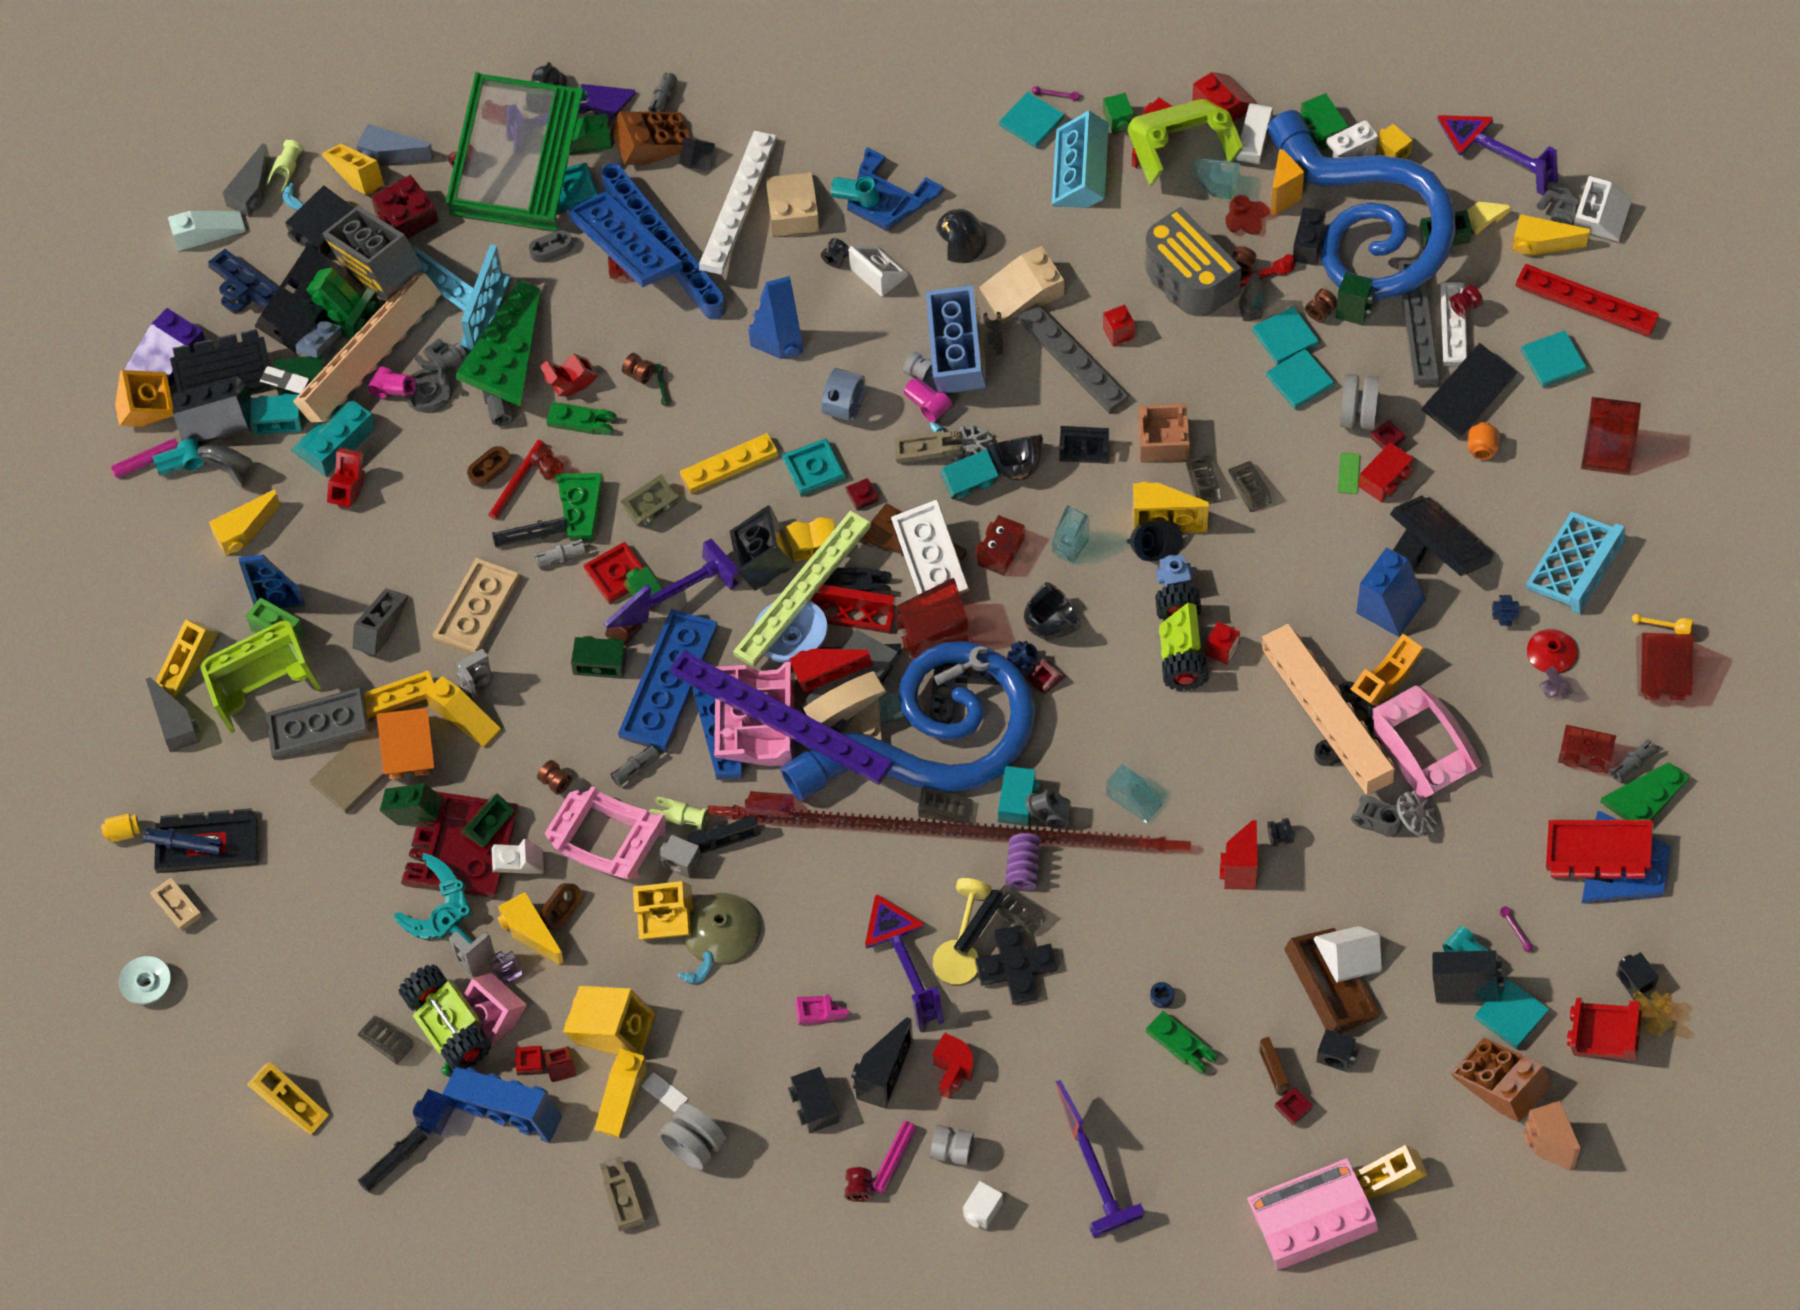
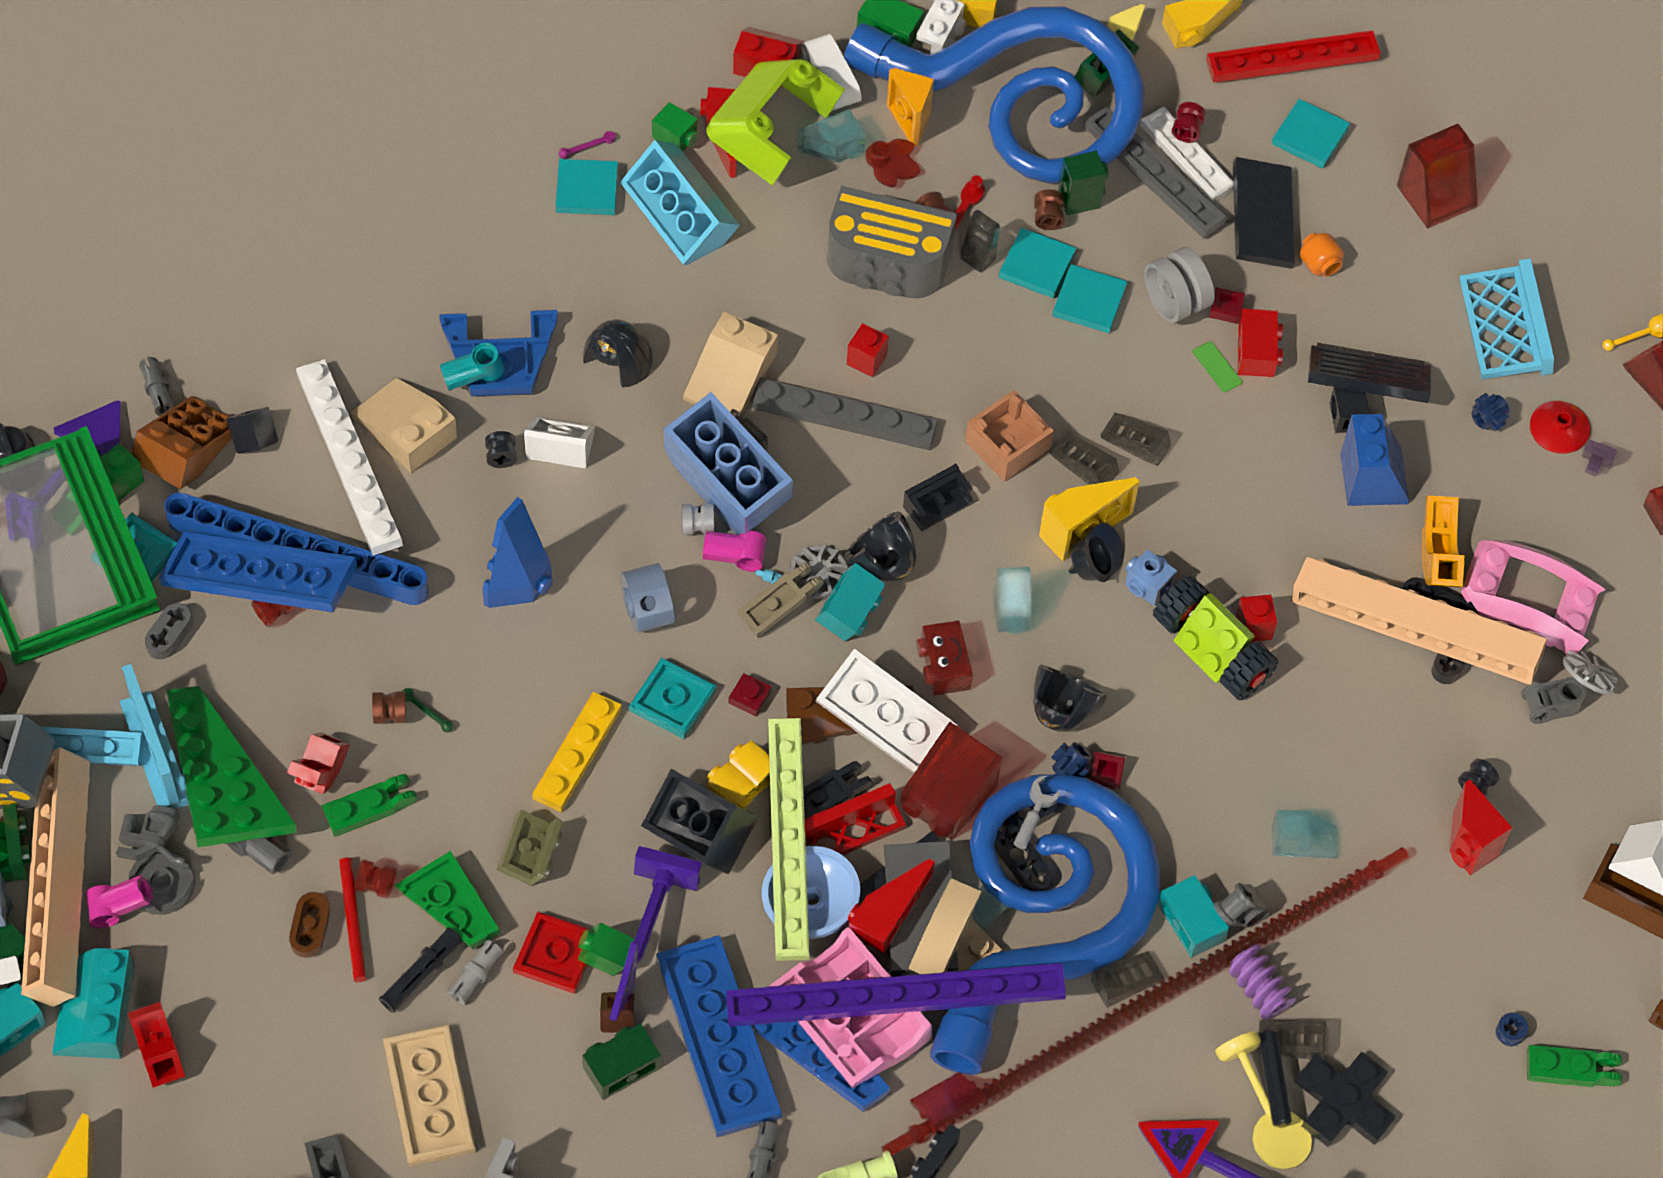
camera: 45 degrees left, 0 degrees up
(1309, 236) = (977, 145): black brick -> none

